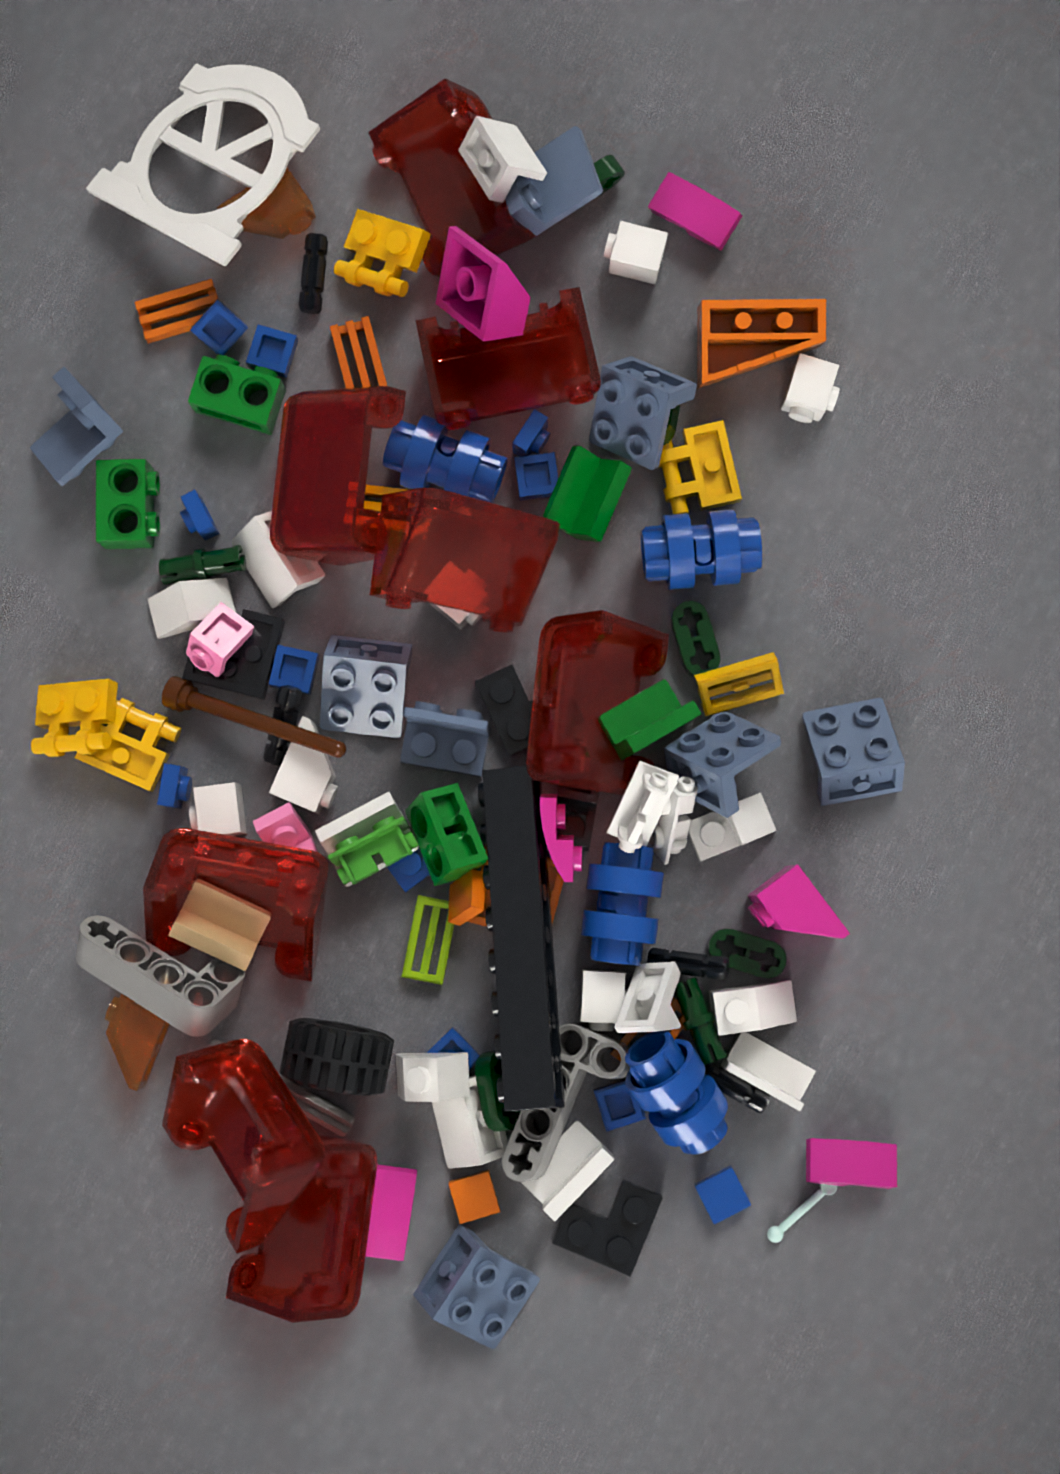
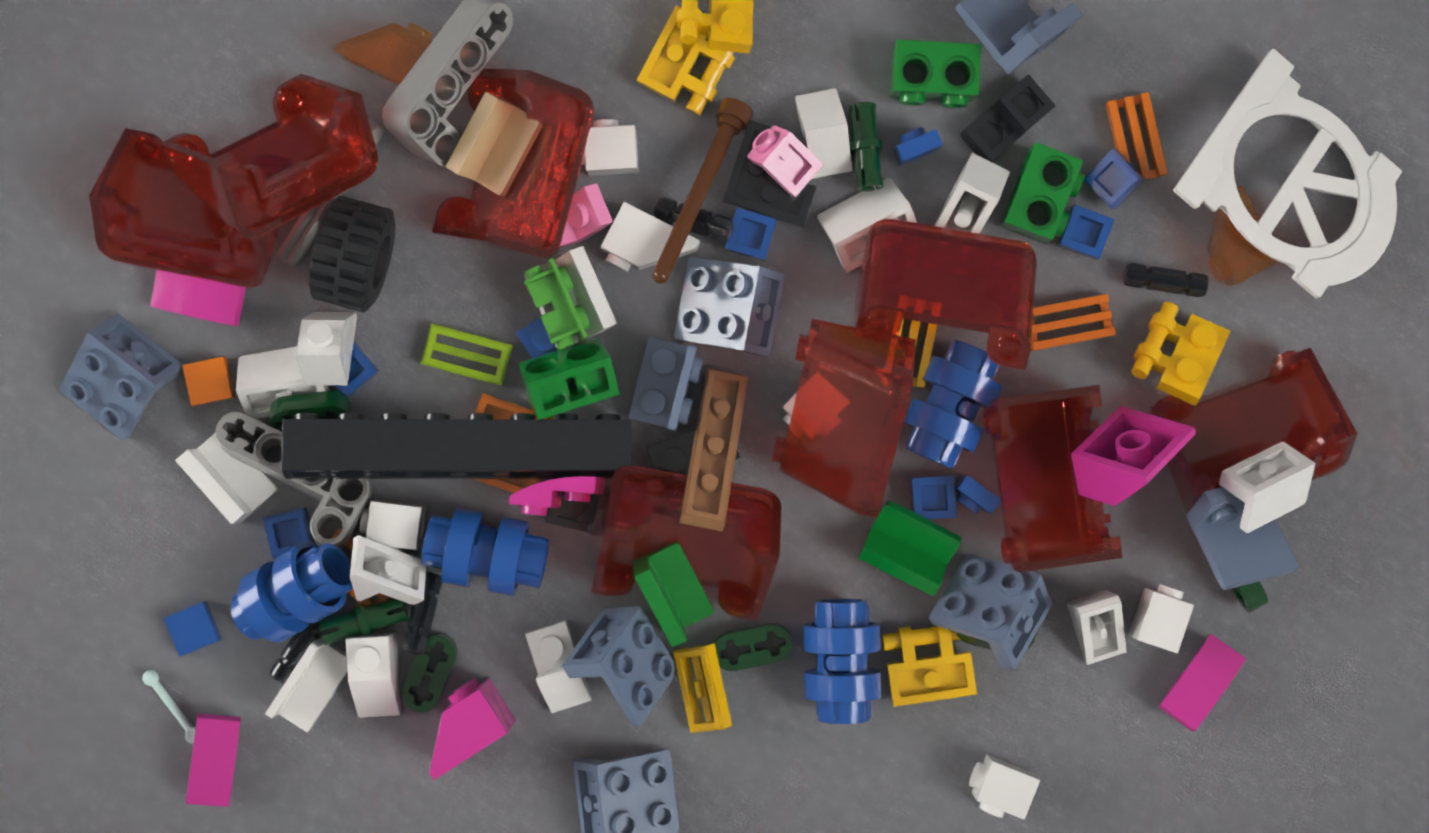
camera: 90 degrees right, 5 degrees up
(169, 433) = (1007, 119): none -> black slope
(174, 786) = (639, 105): blue plate -> none
(243, 458) = (973, 196): none -> white slope
(466, 897) = (503, 394): orange tile -> none
(505, 685) = (714, 450): none -> medium nougat tile
(614, 1239) = (157, 516): black plate -> none
(641, 806) = (578, 579): white hinge -> none
(647, 311) = (1098, 625): none -> white slope
(672, 830) = (571, 606): white hinge -> none
(754, 333) = (1064, 731): orange wedge -> none

